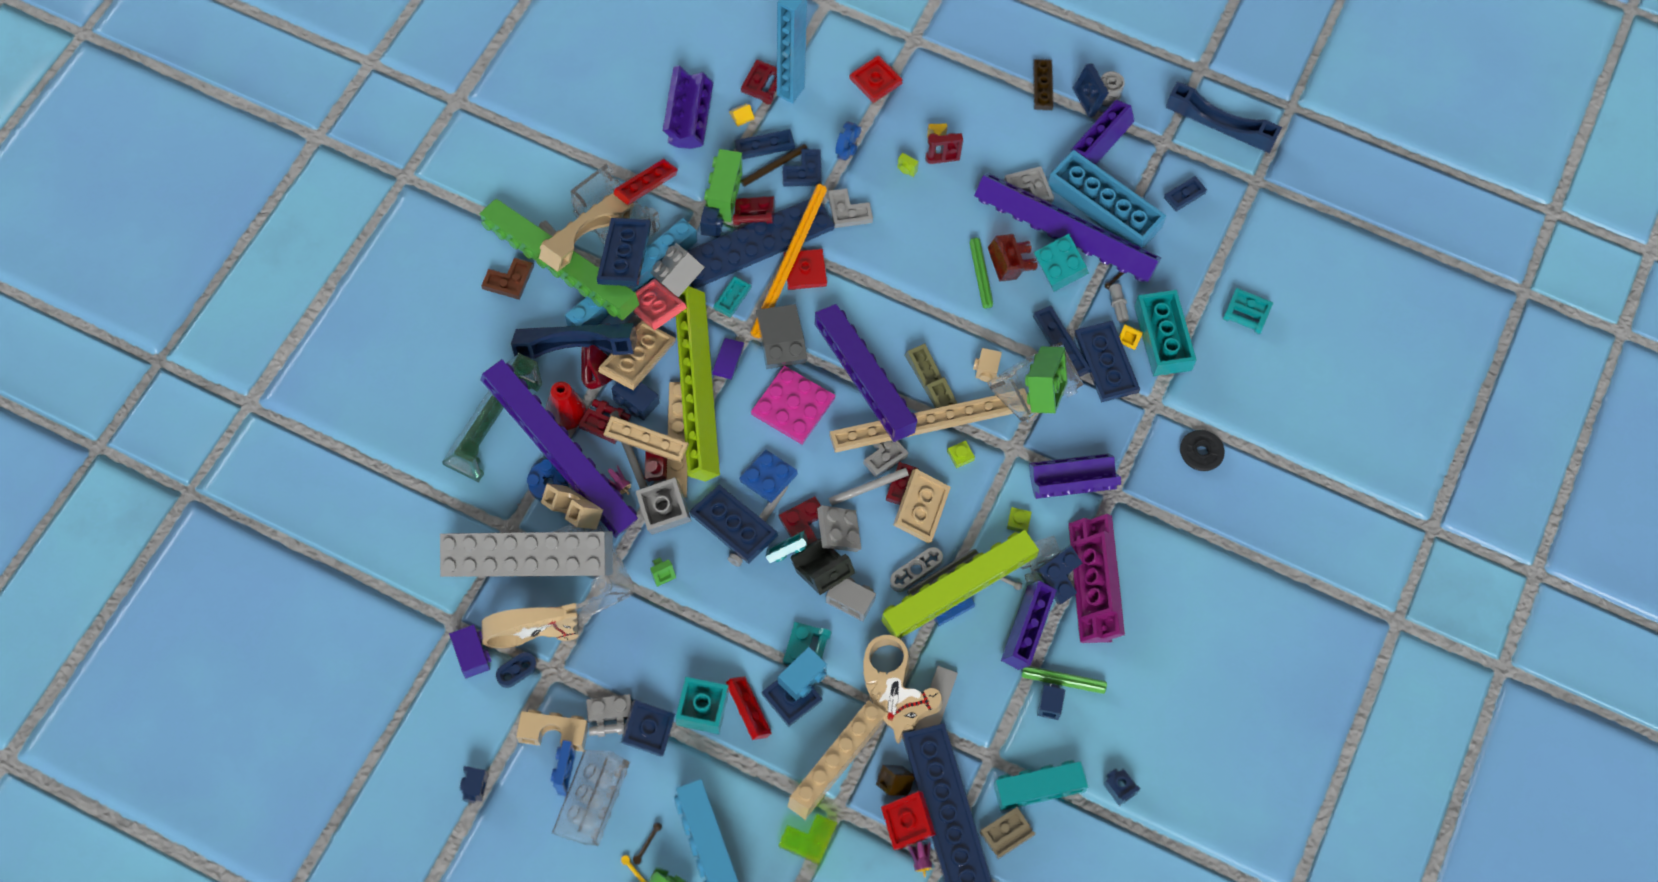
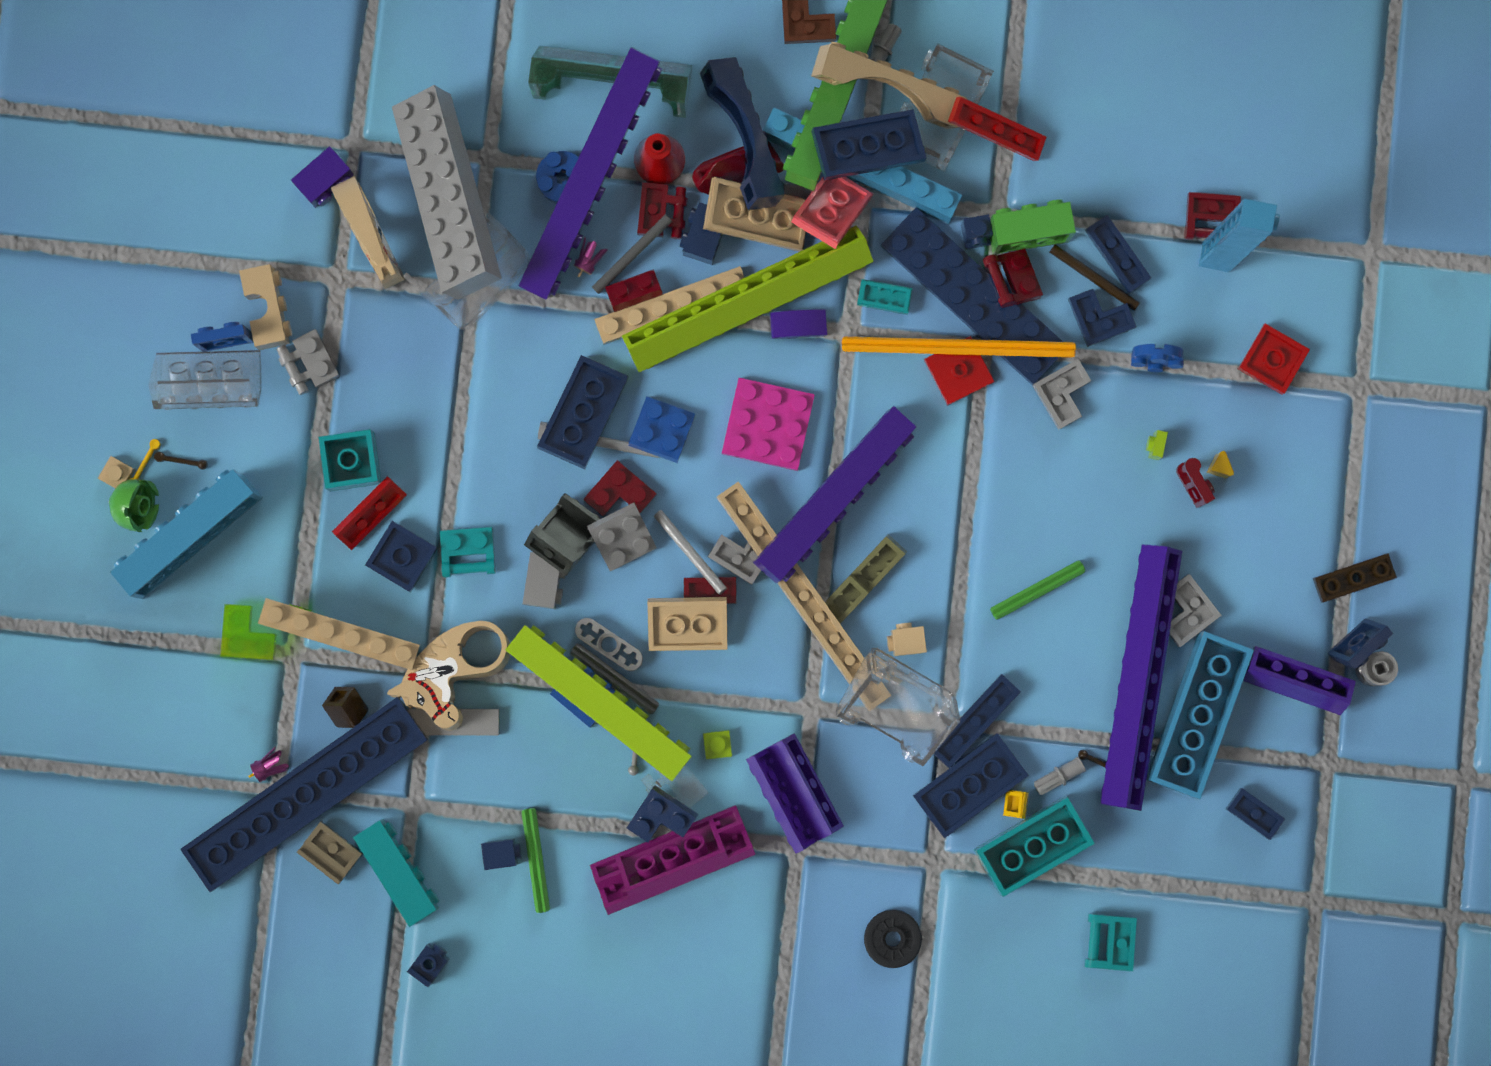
camera: 70 degrees right, 20 degrees up
(474, 784) = (175, 247): dark blue brick -> none
(515, 669) = (322, 238): dark blue plate -> none
(577, 508) = (522, 233): tan arch -> none
(646, 439) = (646, 269): tan tile -> none
(648, 728) = (304, 410): dark blue plate -> none
(662, 571) = (495, 352): bright green tile -> none
(663, 506) = (571, 323): light grey brick -> none
(677, 269) = (883, 217): light grey brick -> none
(687, 108) = (1129, 137): dark purple brick -> none
(742, 114) = (1153, 208): yellow slope -> none
(781, 336) = (848, 376): dark grey slope -> none
(781, 550) = (575, 484): plate -> none
(803, 674) = (423, 559): dark azure brick -> none
(908, 820) = (300, 737): red plate -> none
(960, 454) = (777, 647): lime plate -> none
(1007, 257) = (1065, 616): clear red brick -> none
(1028, 625) = (581, 798): dark purple brick -> none
(1047, 379) = (896, 720): bright green brick -> none
(1061, 262) = (1082, 685): teal brick -> none
(1189, 103) = (1393, 790): dark blue arch -> none

